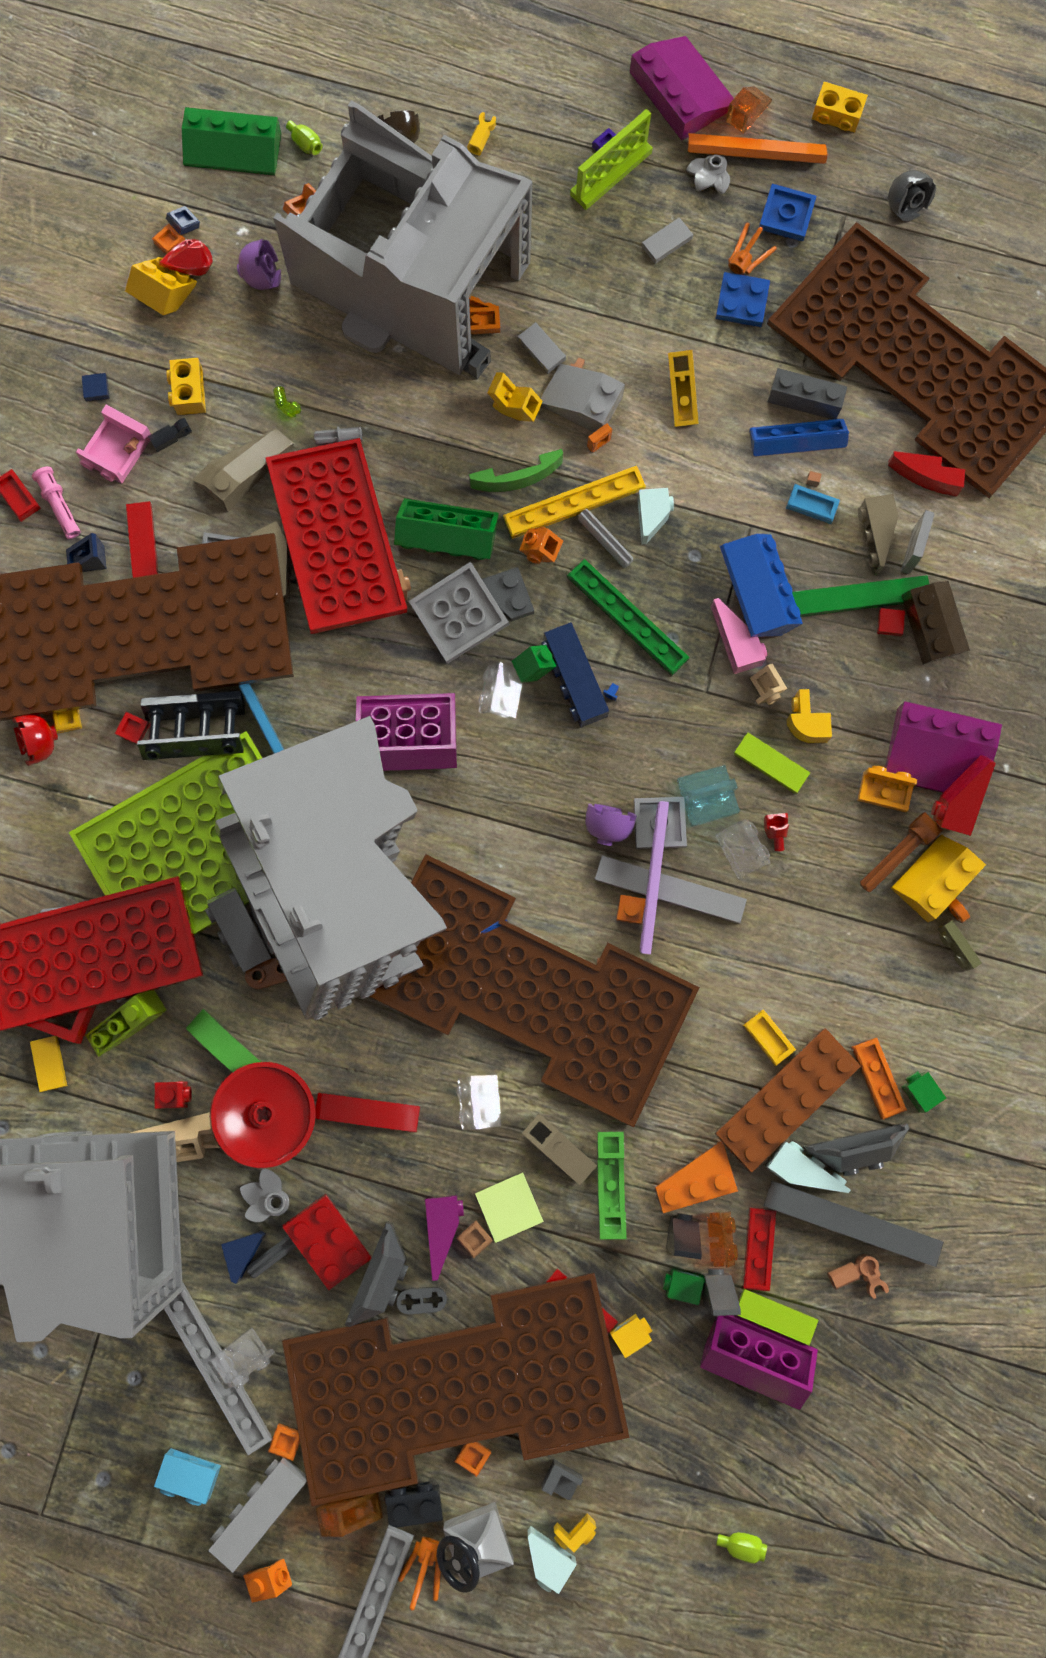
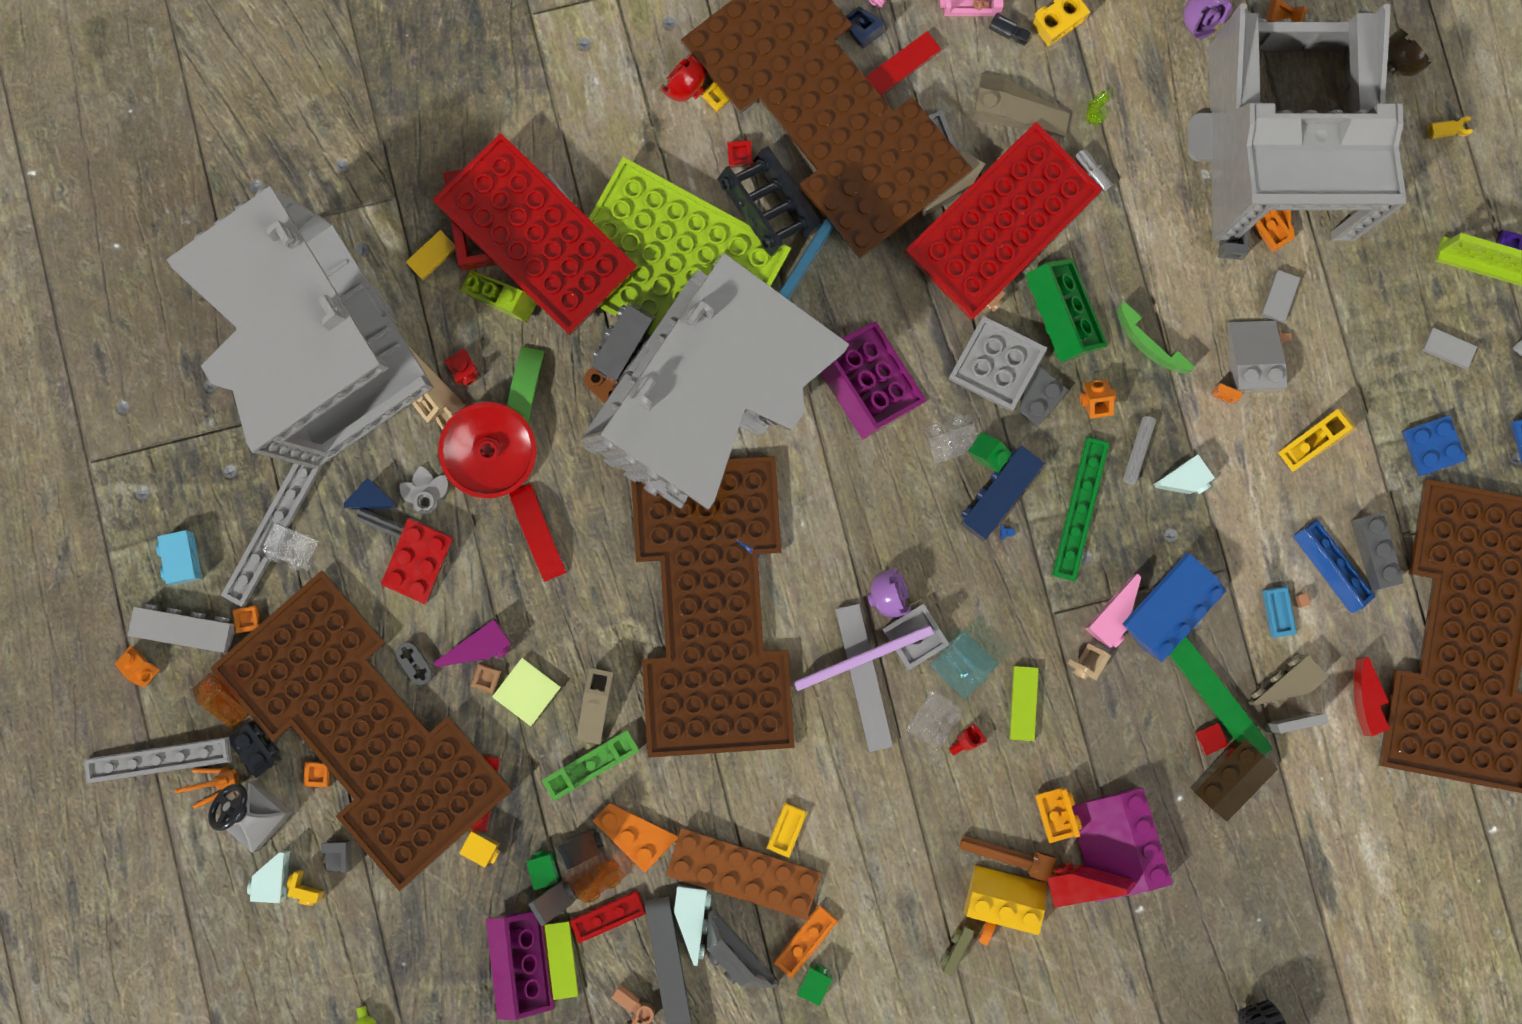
camera: 60 degrees right, 5 degrees up
(380, 1278) = (412, 620): dark grey wedge -> none
(479, 1102) = (596, 619): clear bracket -> none
(514, 401) = (1215, 300): yellow brick -> none
(574, 502) = (1156, 405): yellow tile -> none
(630, 909) = (828, 653): orange plate -> none
(741, 261) = (1470, 423): orange plant -> none
(806, 725) = (1073, 715): yellow brick -> none

